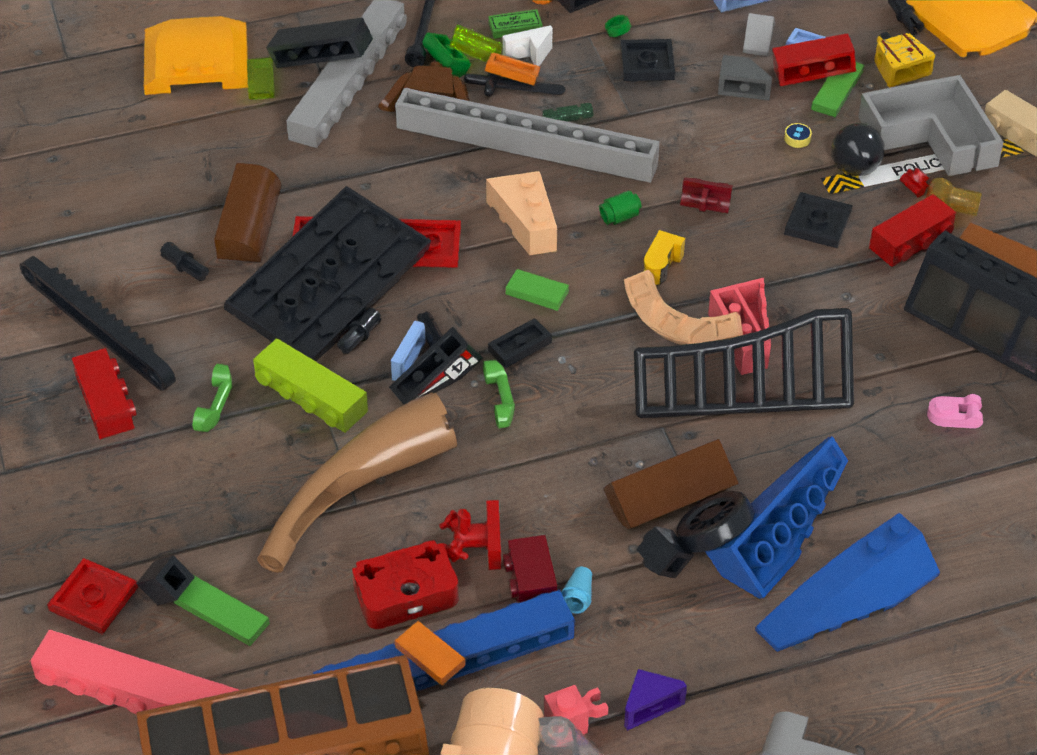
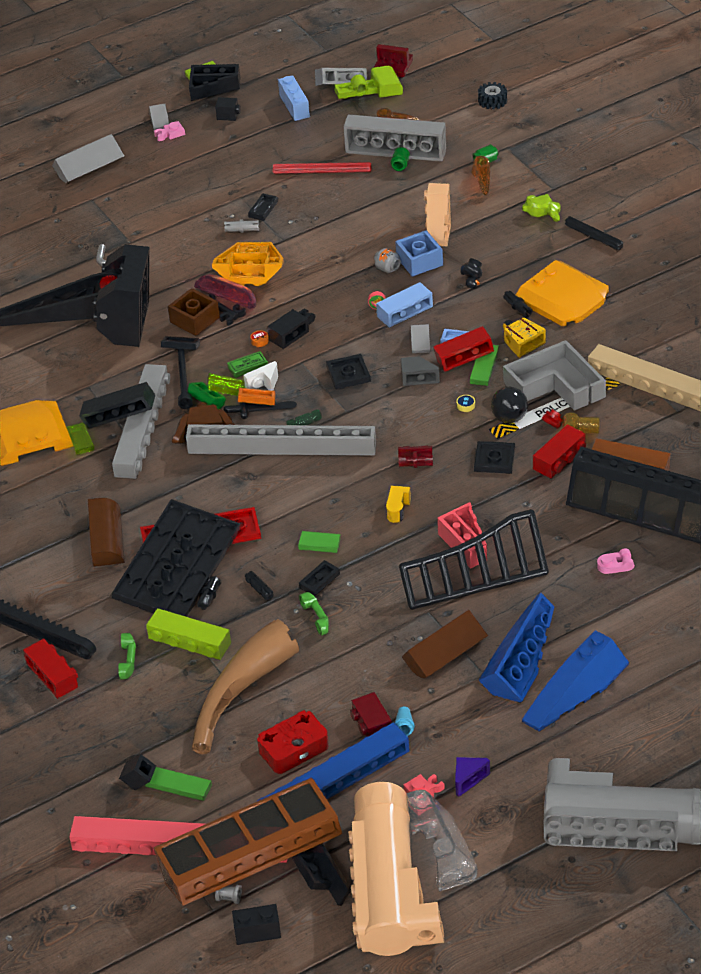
camera: 10 degrees left, 5 degrees down
(92, 596) = (91, 793): red tile -> none
(183, 261) = (72, 573): black axle -> none
(408, 350) = (246, 599): light blue tile -> none
(430, 653) = (324, 775): orange tile -> none
(437, 368) = (270, 605): black slope -> none
(474, 534) = (330, 702): red piece -> none
(526, 210) = (297, 490): light nougat wedge -> none
(617, 26) = (320, 351): green tile -> none
(620, 207) = (359, 476): green brick -> none
(664, 552) = (452, 686): black brick -> none
(674, 324) = (414, 544): light nougat tile -> none
(715, 521) = (480, 660): black wheel -> none

